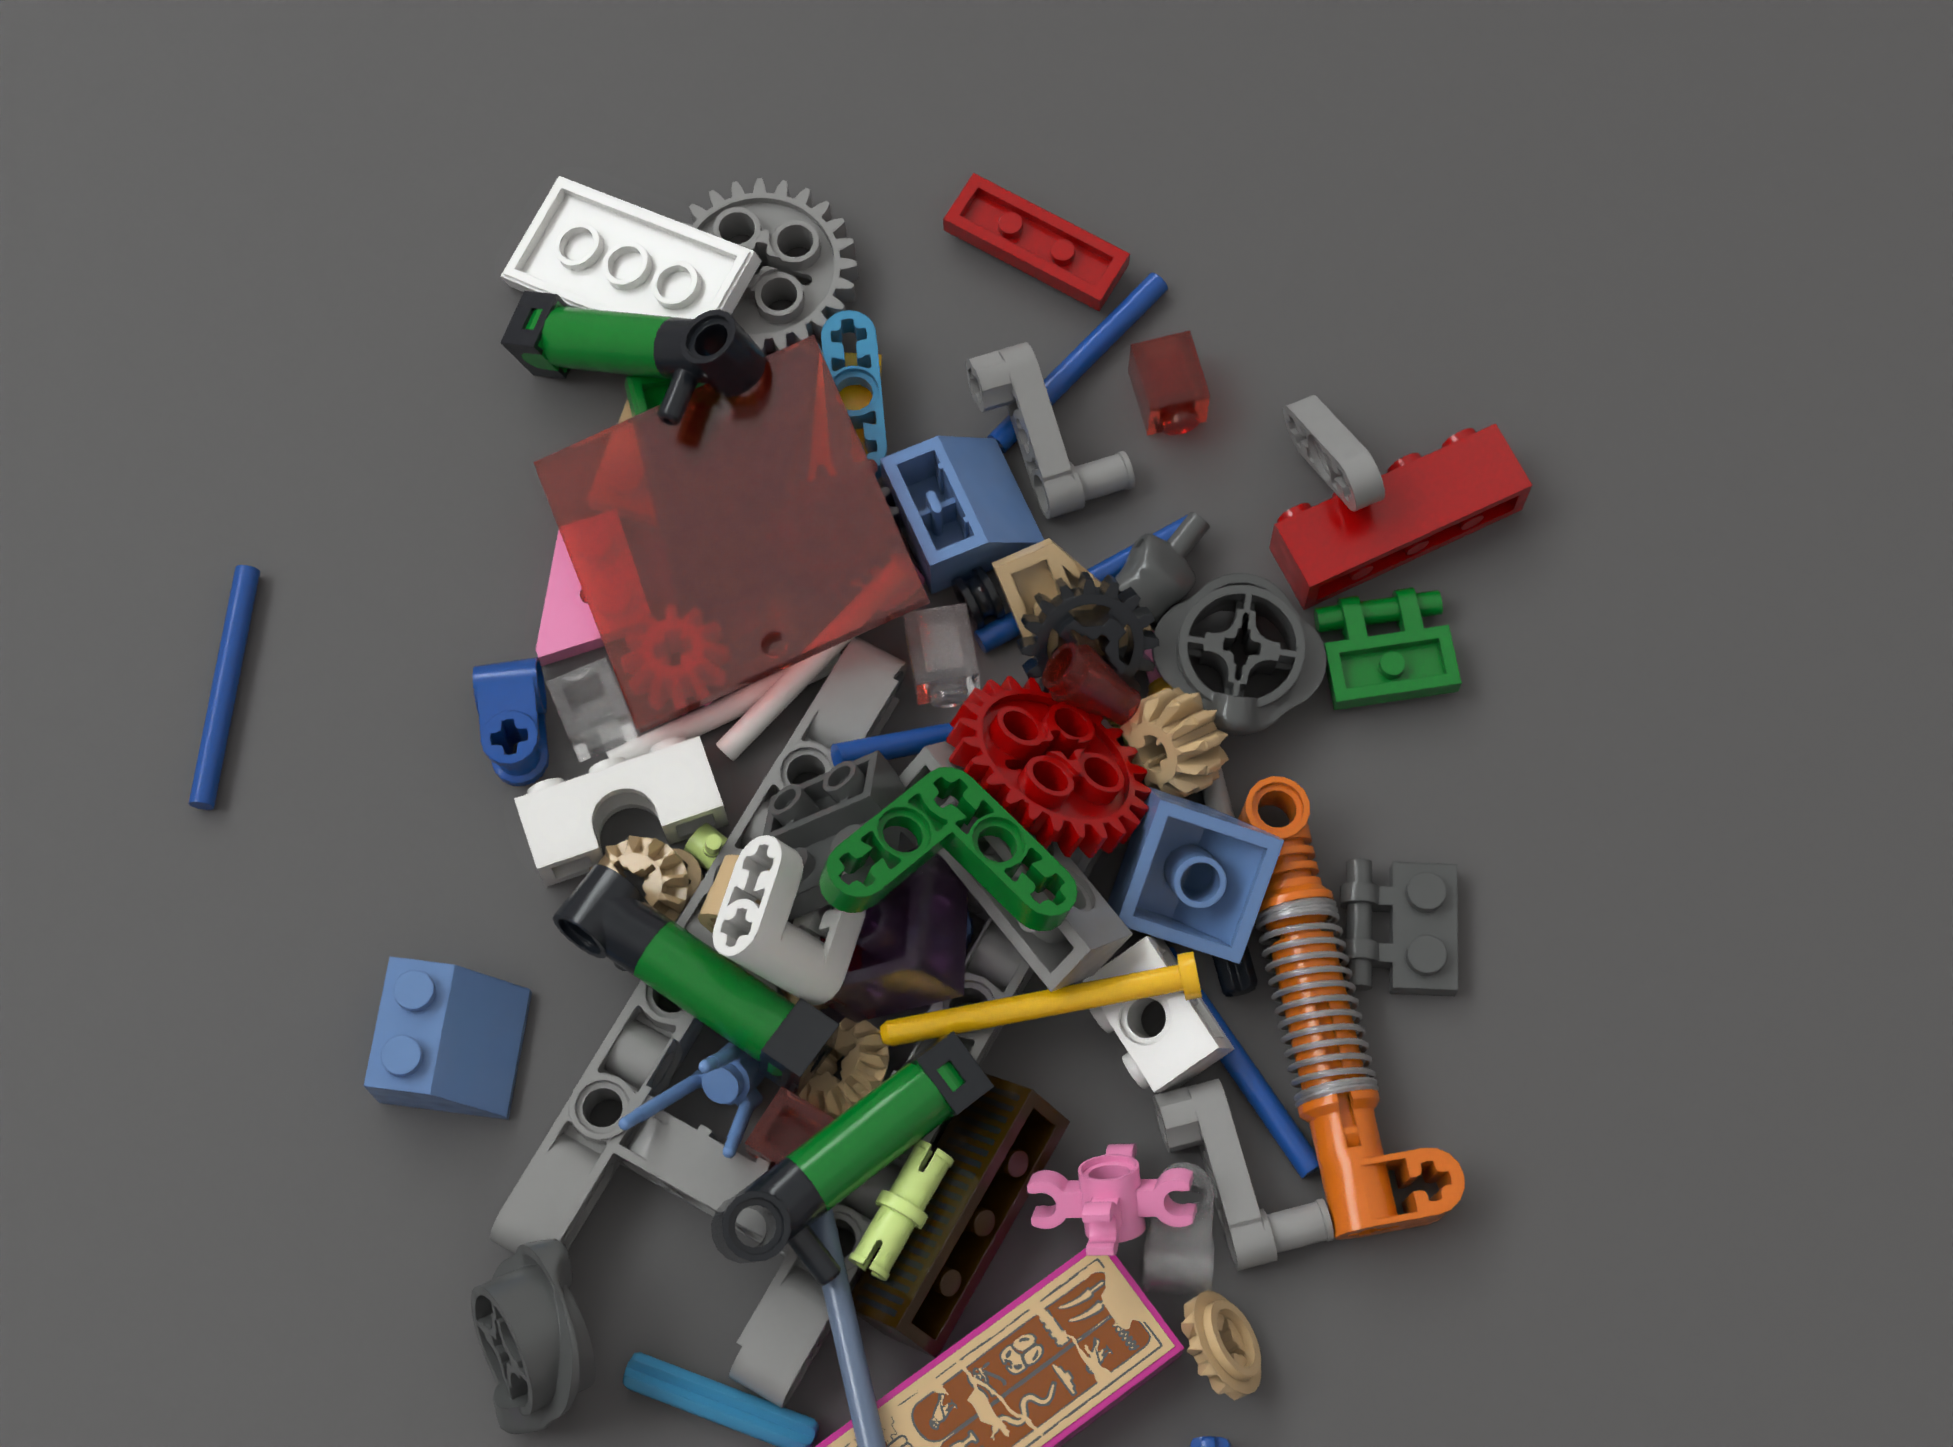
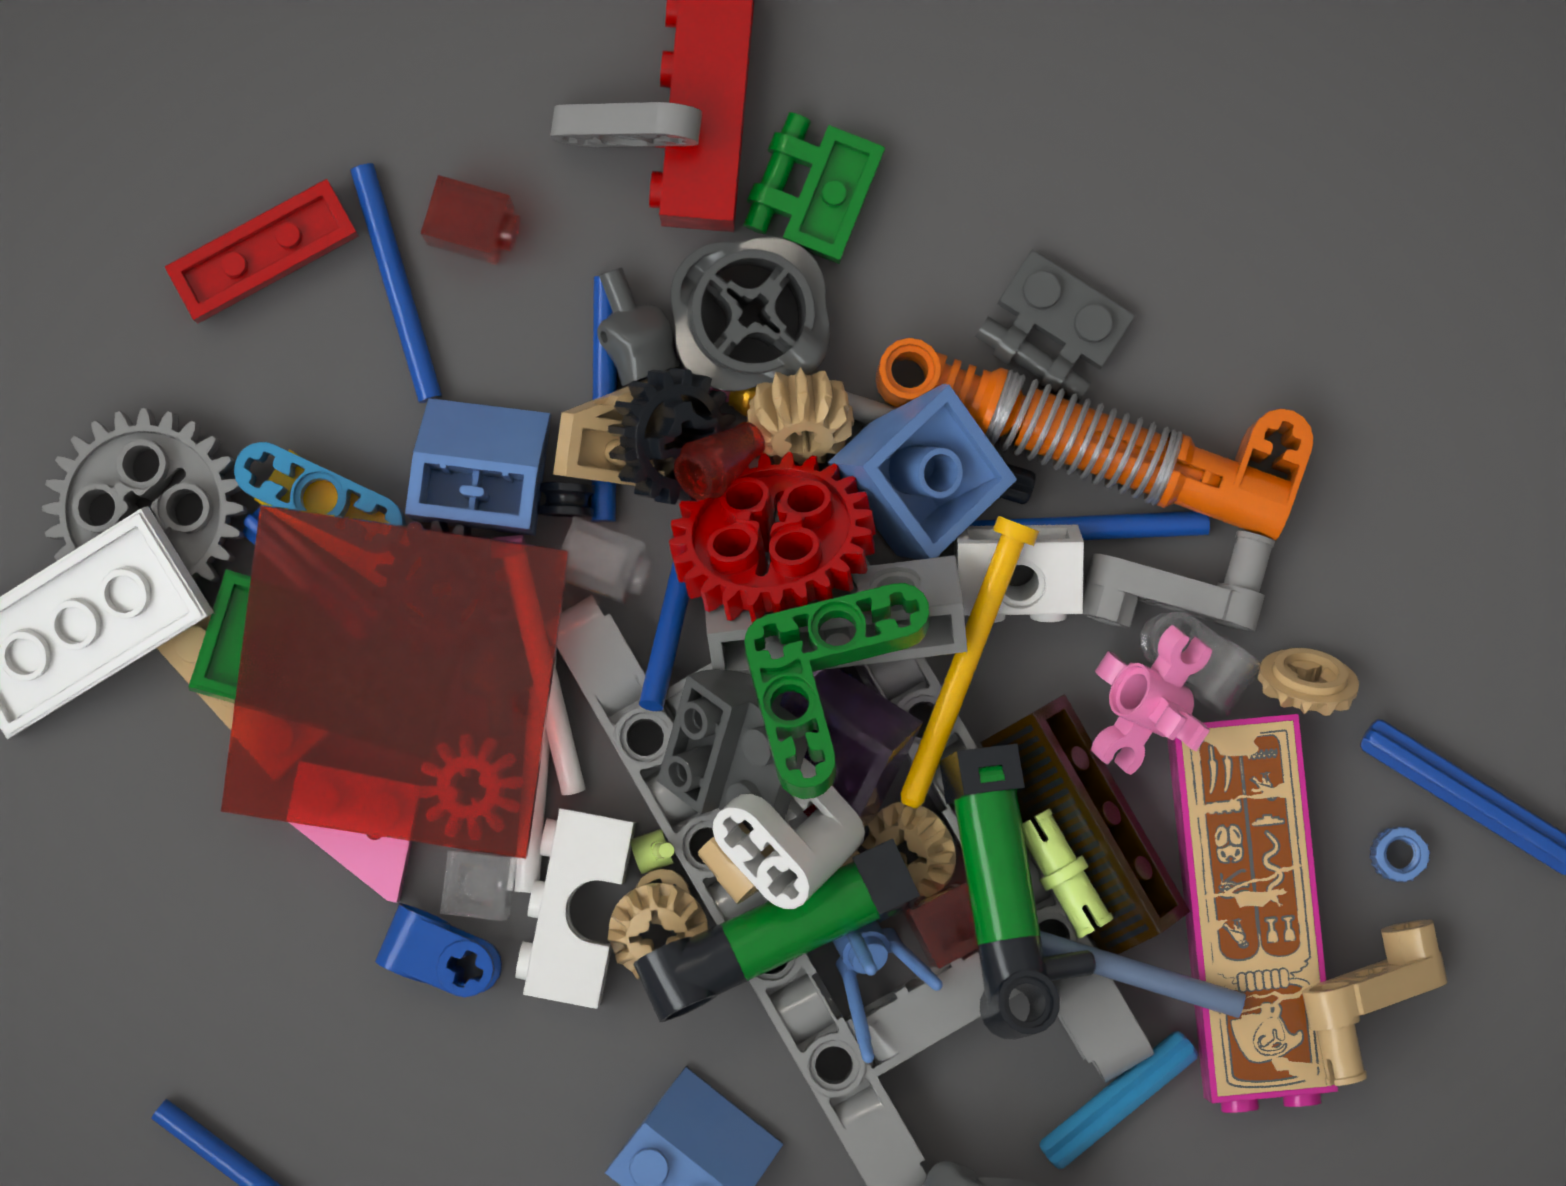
camera: 60 degrees left, 15 degrees up
(708, 349) = (210, 622): piece -> none
(1015, 380) = (393, 353): light grey beam -> none

